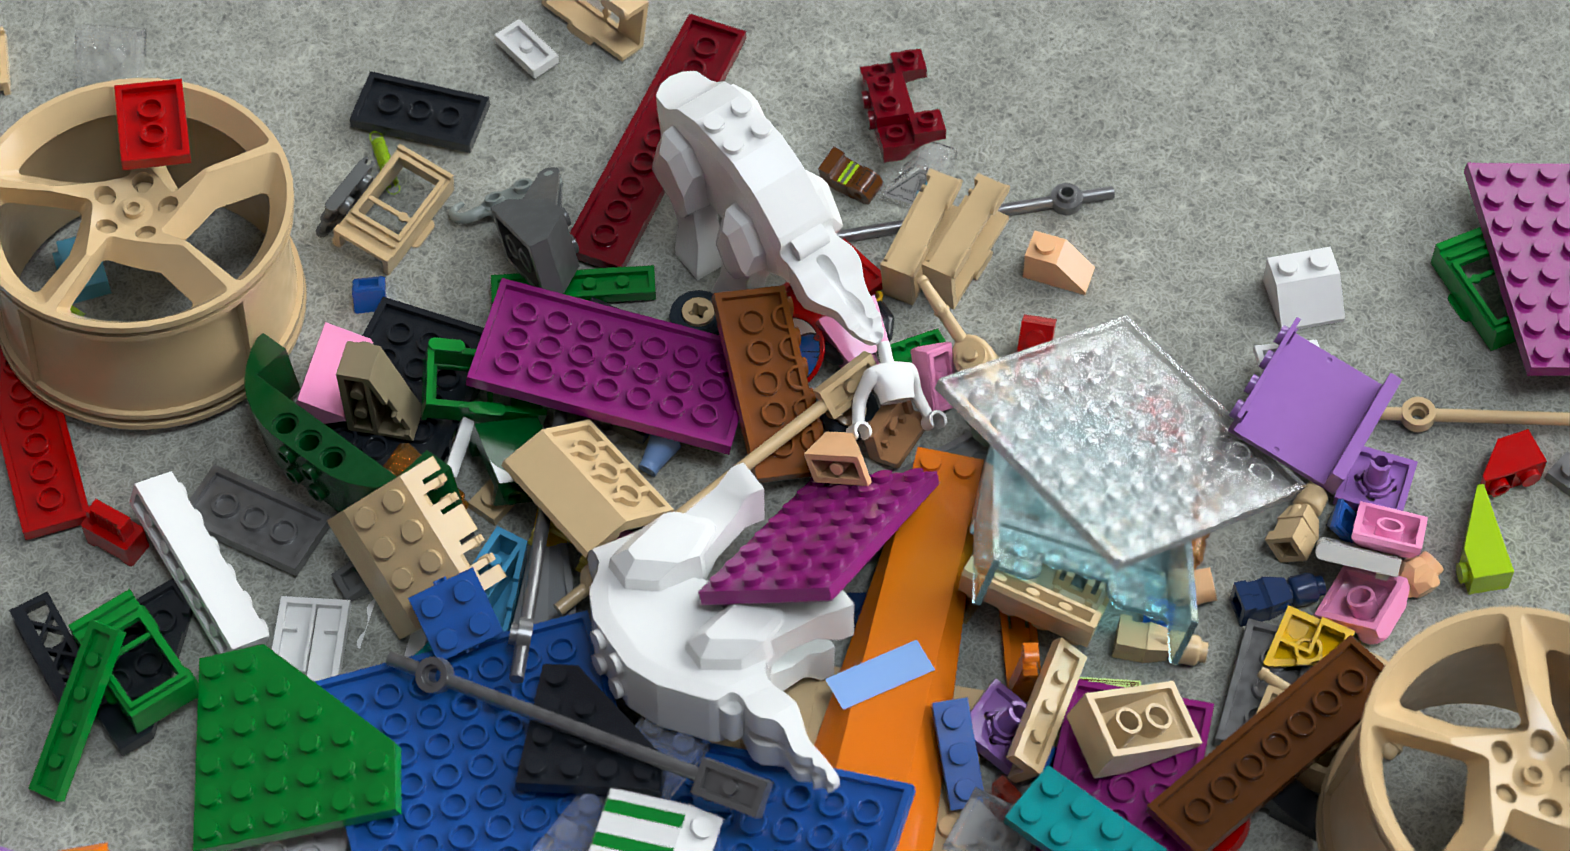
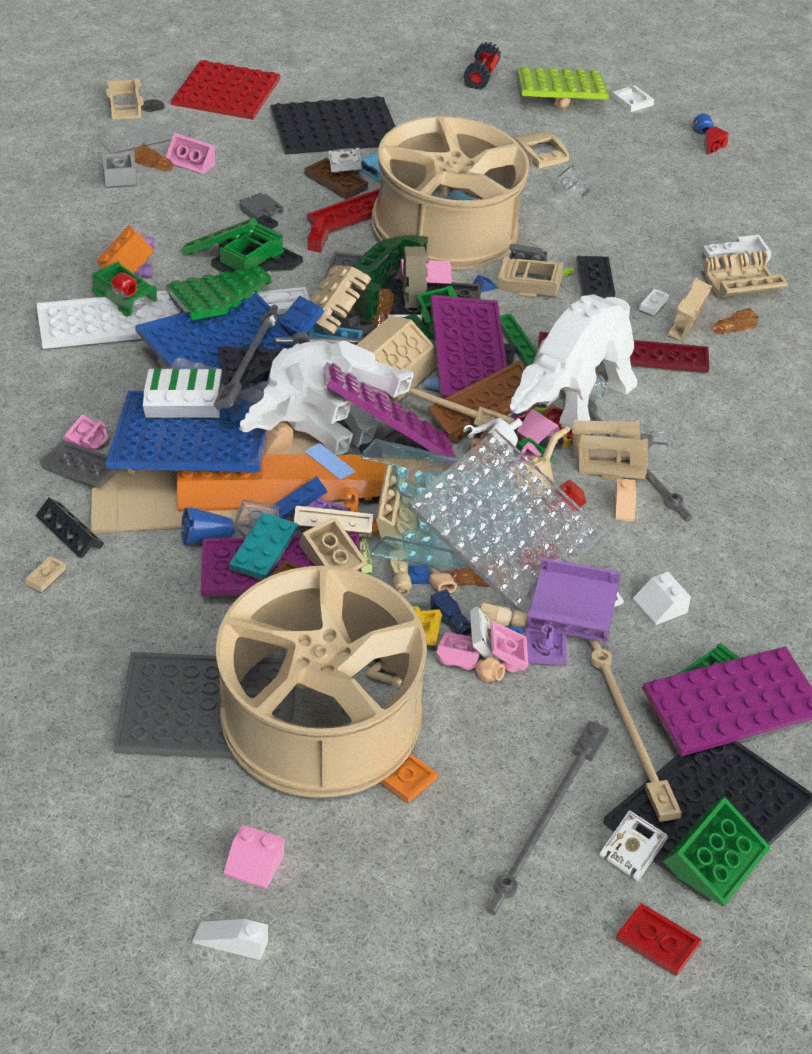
camera: 70 degrees right, 15 degrees down
(152, 124) = (495, 152): red plate -> none
(197, 564) = (307, 257): white brick -> none
(531, 229) = (526, 311): dark grey slope -> none
(837, 460) = (449, 426): light nougat slope -> none
(850, 177) = (640, 412): reddish brown leg -> none
(890, 107) = (690, 421): dark red bracket -> none
(1484, 557) = (523, 694): lime slope -> none
(1513, 463) = (585, 701): red slope -> none

